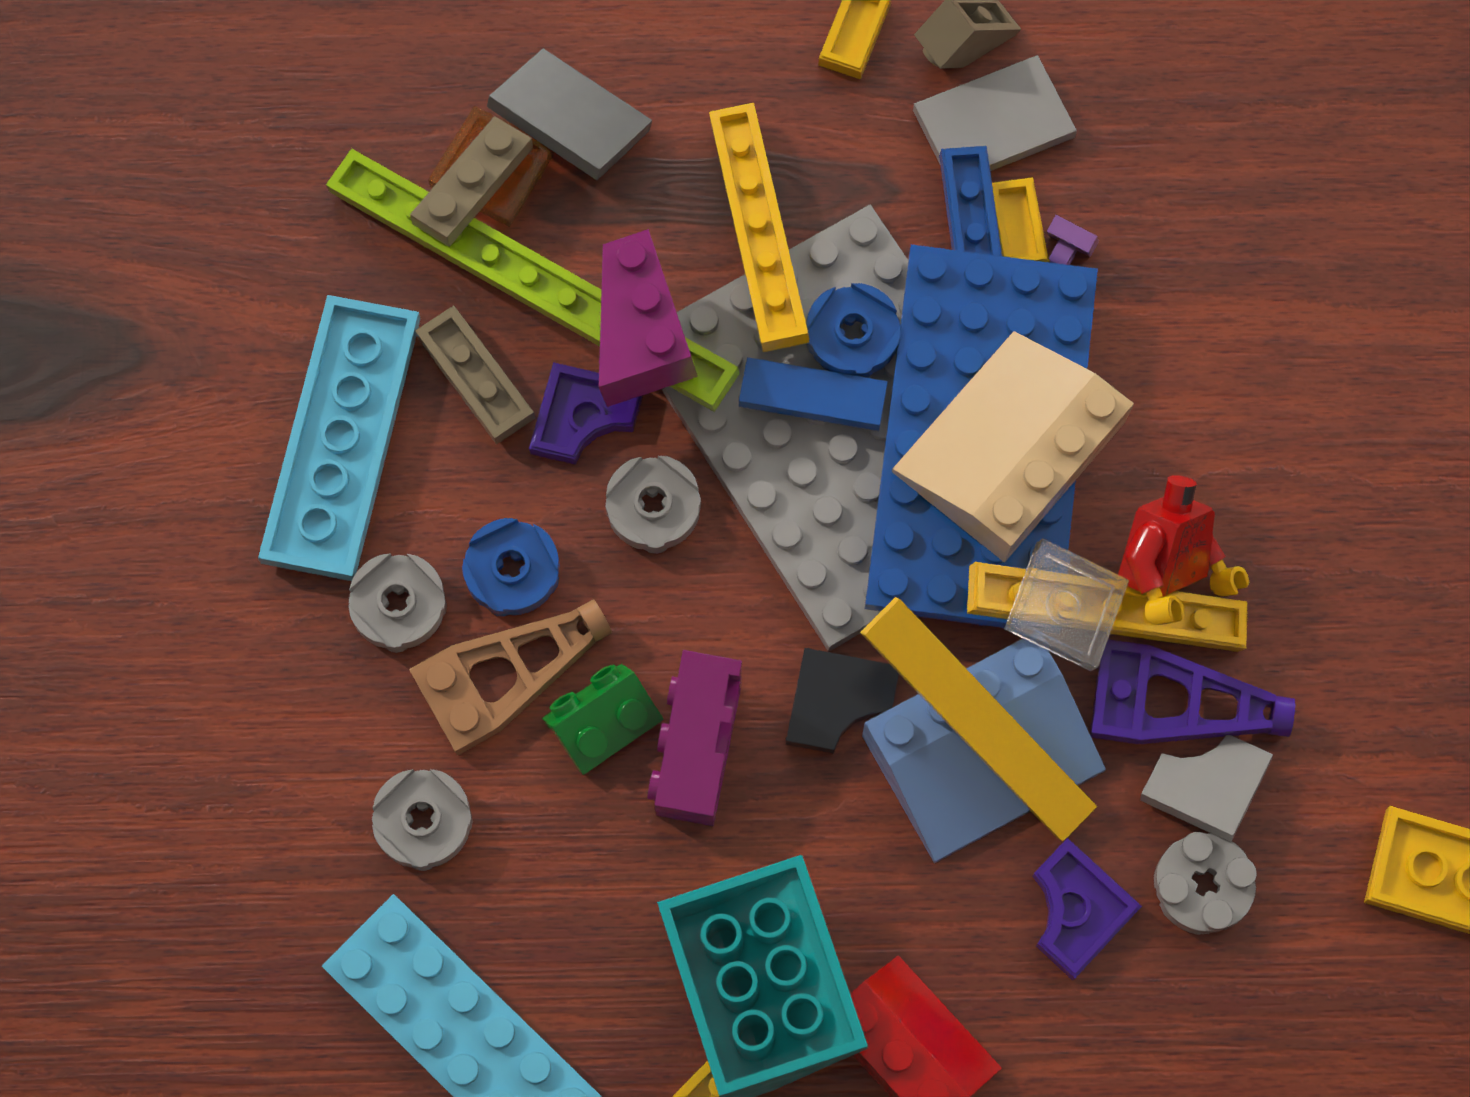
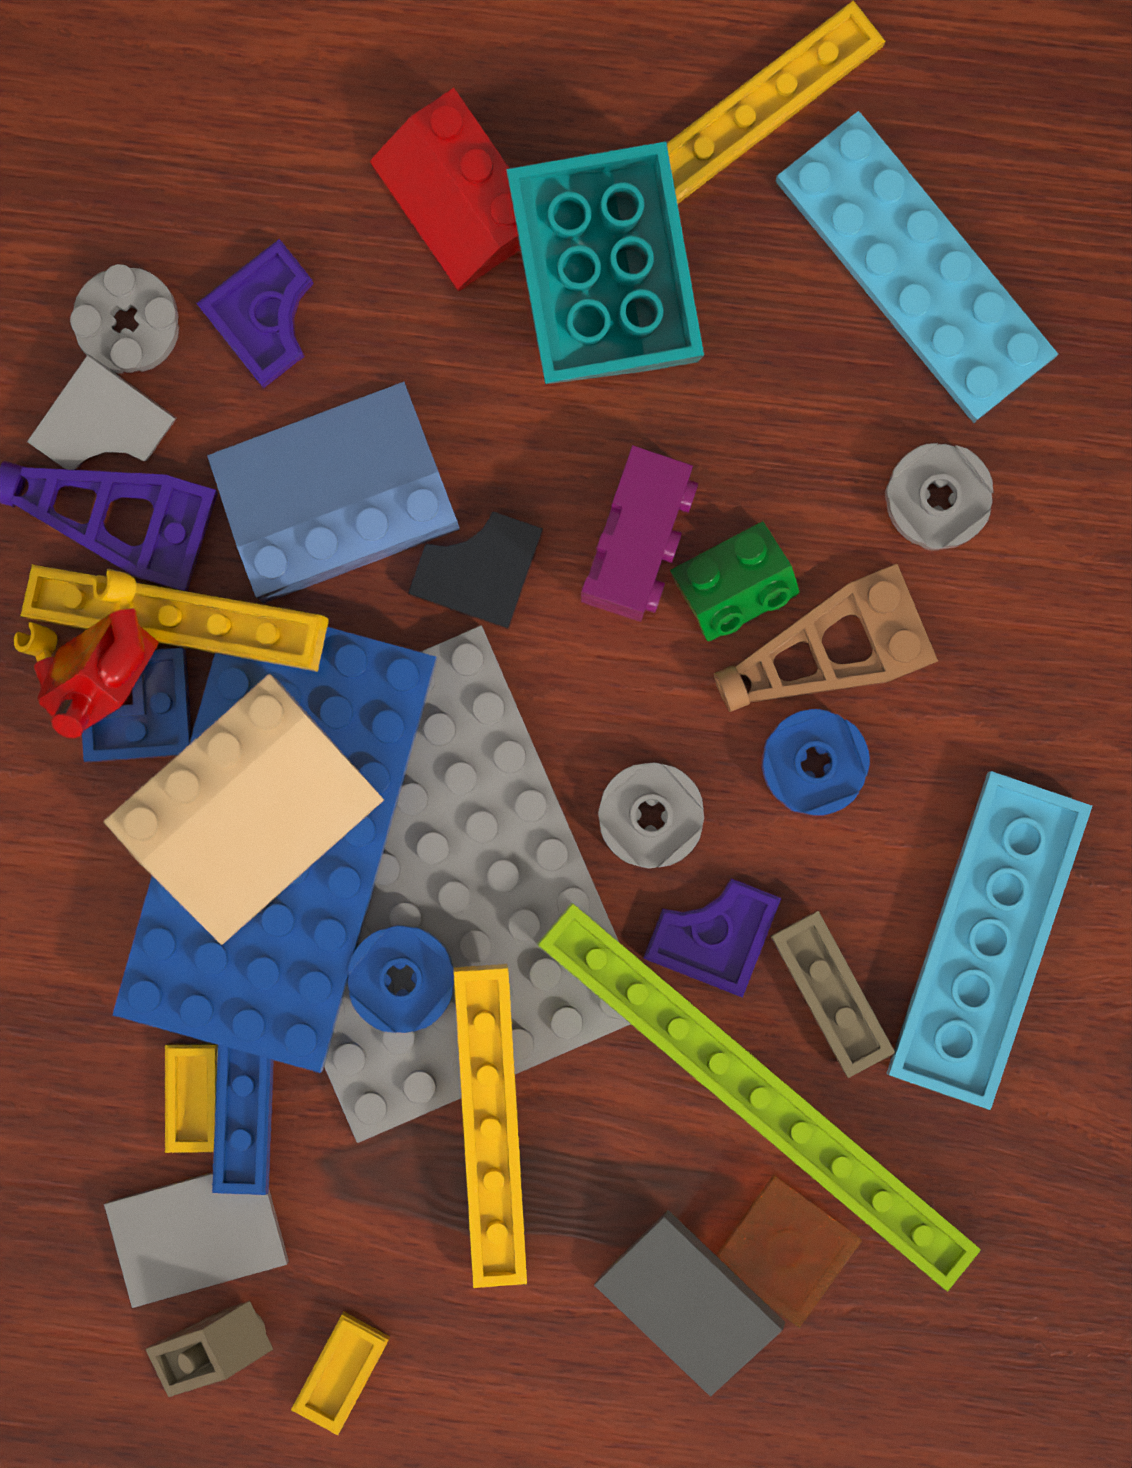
camera: 170 degrees left, 15 degrees up
(397, 628) = (973, 746): light grey plate -> none
(471, 181) = (812, 1224): dark tan plate -> none
(639, 324) = (642, 1007): magenta wedge -> none
(813, 394) = (457, 911): blue tile -> none
(978, 719) = (337, 505): yellow tile -> none
(1066, 604) = (218, 612): clear tile -> none
(1070, 240) = (135, 1065): medium lavender tile -> none
(1106, 521) = (157, 720): none -> blue plate

